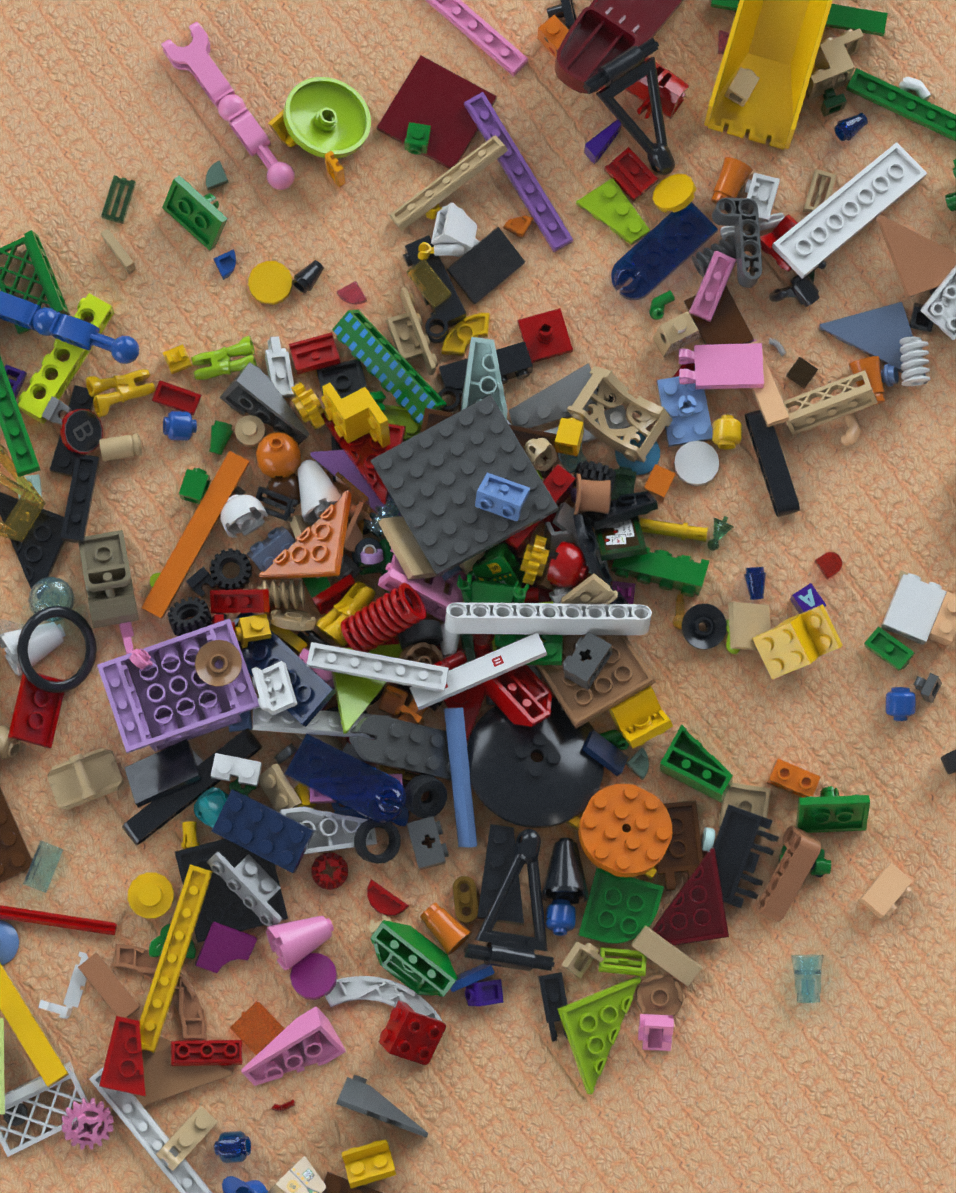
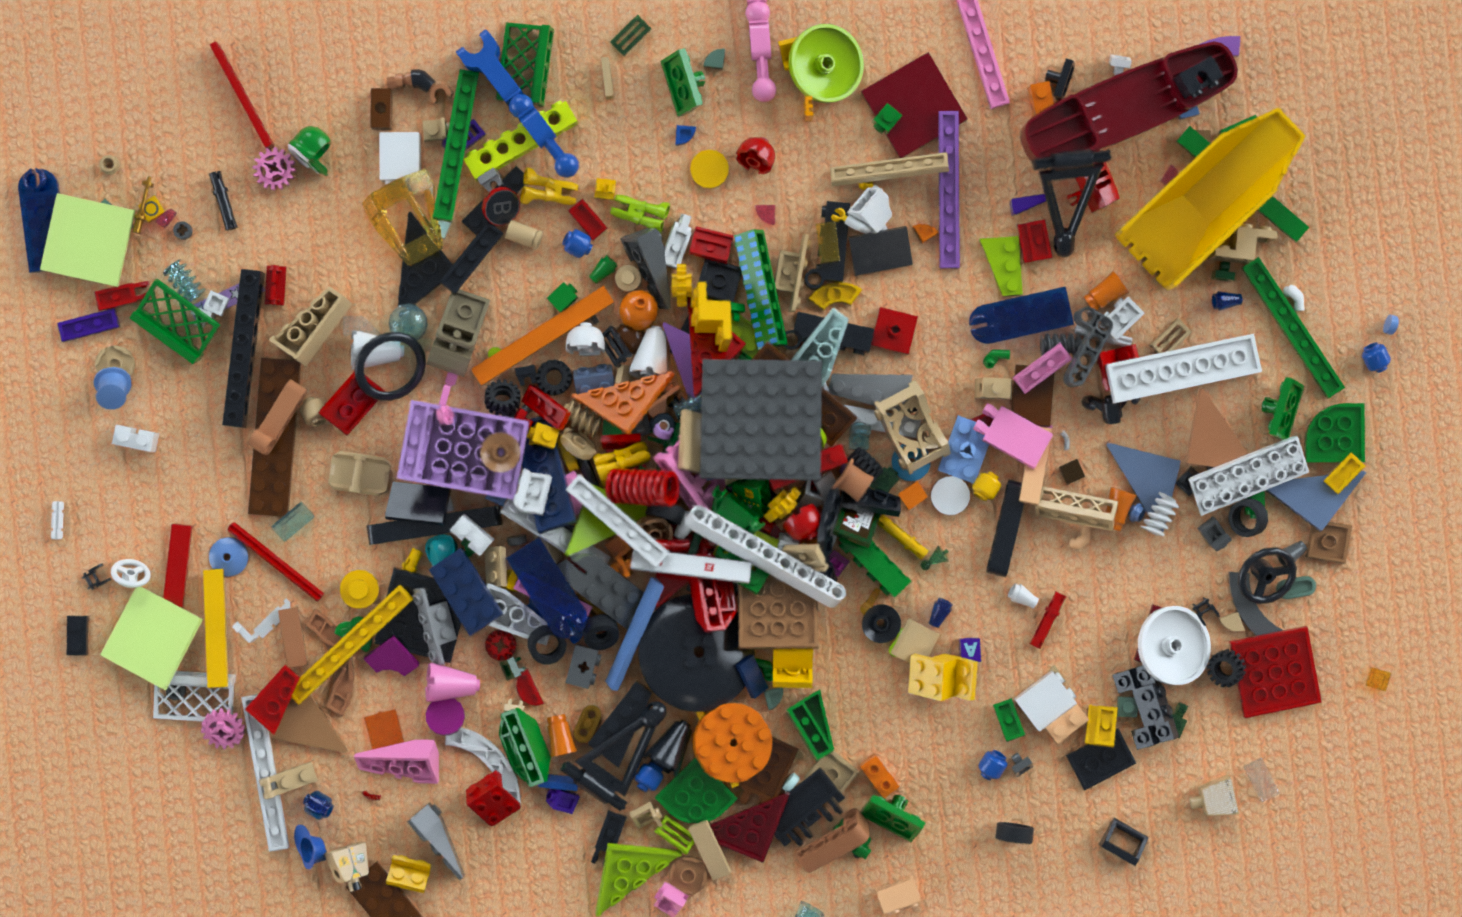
camera: 25 degrees right, 10 degrees up
(191, 1053) = (325, 722): red tile -> none
(308, 276) = (740, 181): black cone -> none
(309, 242) = (756, 154): none -> red cylinder
(353, 887) = (510, 668): none -> tile
(501, 496) = (782, 448): medium blue bracket -> none
(539, 448) = (831, 422): tan piece -> none
(569, 436) = (863, 425): yellow brick -> none
(586, 672) = (769, 613): dark grey brick -> none
(674, 193) = (1057, 276): yellow tile -> none
(742, 86) = (1161, 221): tan brick -> none
(827, 519) = (1021, 595): none -> white cone
(829, 564) = (1004, 629): clear red tile -> none
(866, 520) = (1050, 615): none -> red pin

